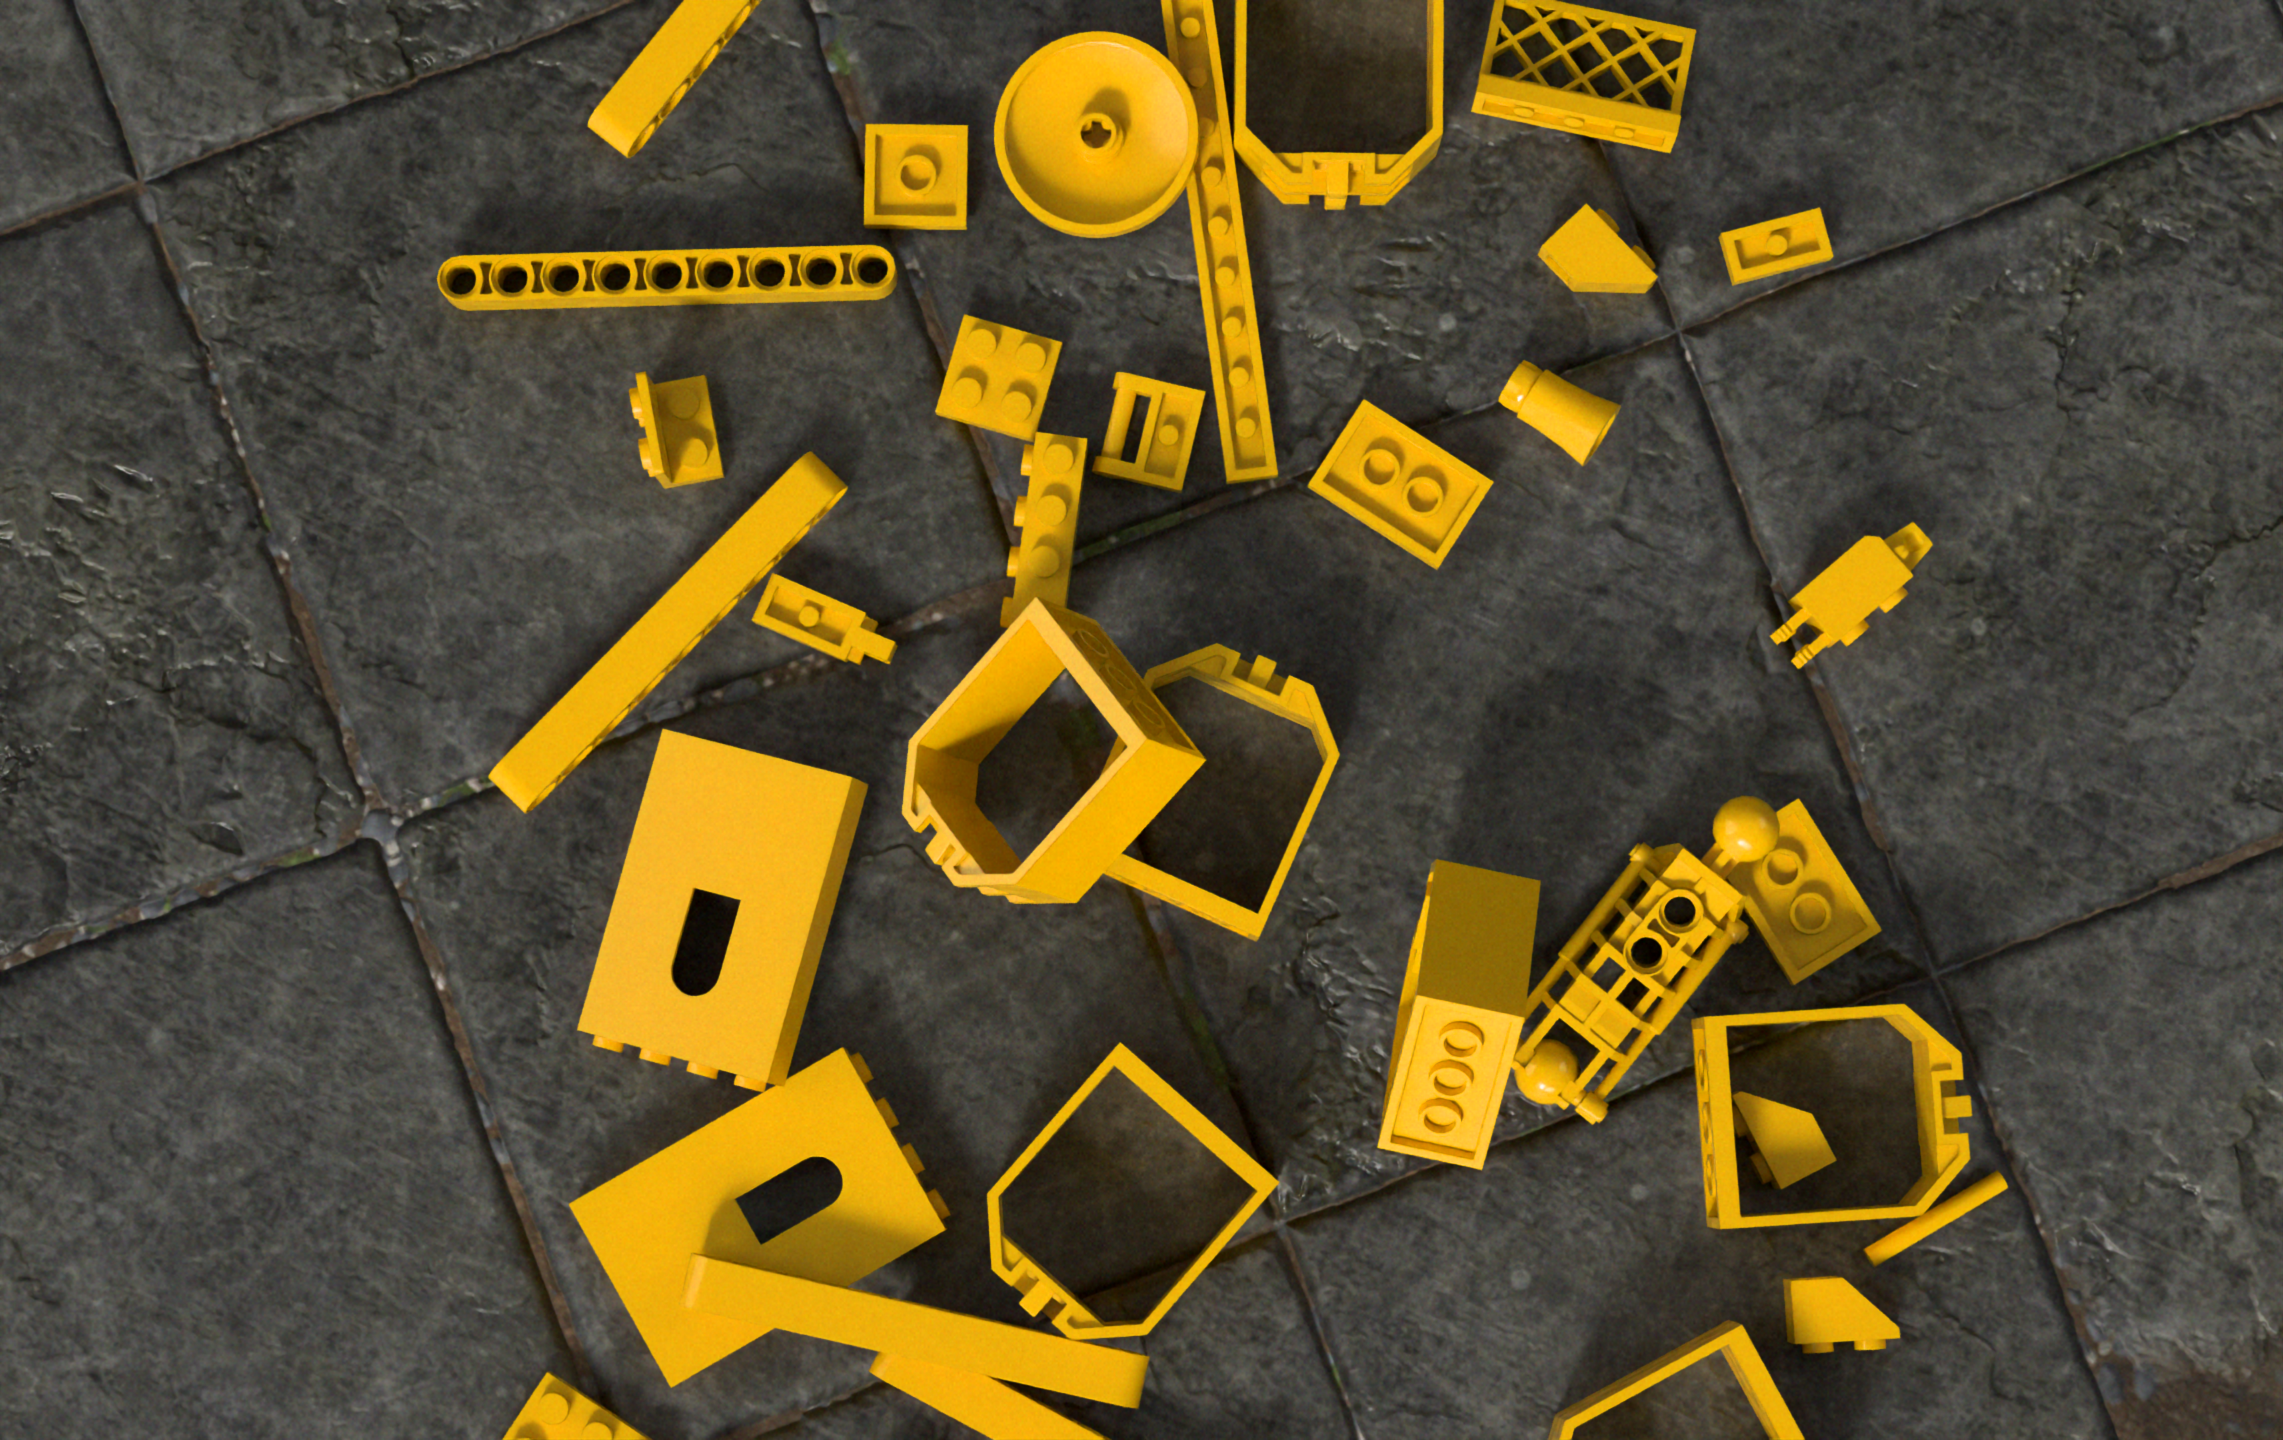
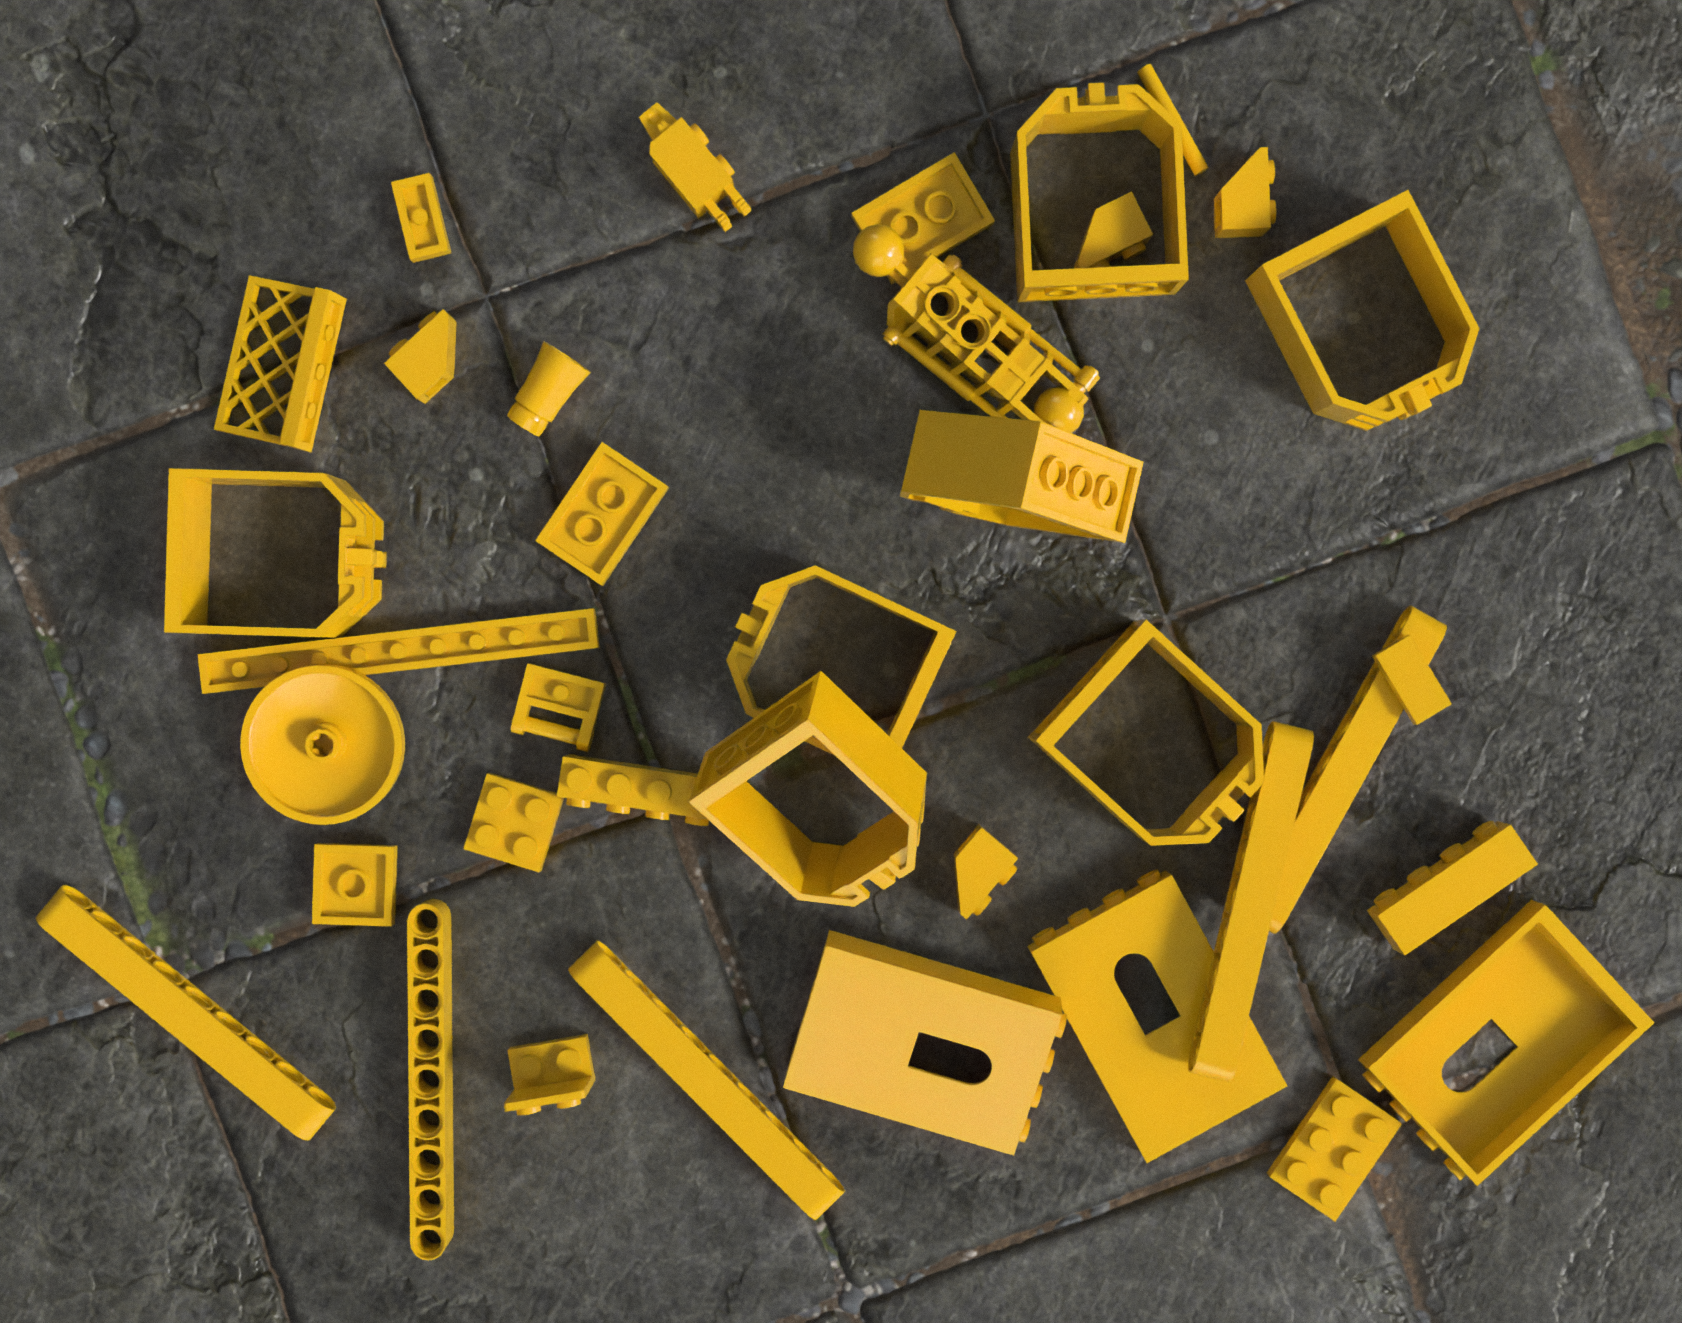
camera: 90 degrees left, 5 degrees up
(821, 622) = (701, 962): yellow hinge -> none
(950, 979) = (978, 868): none -> yellow slope

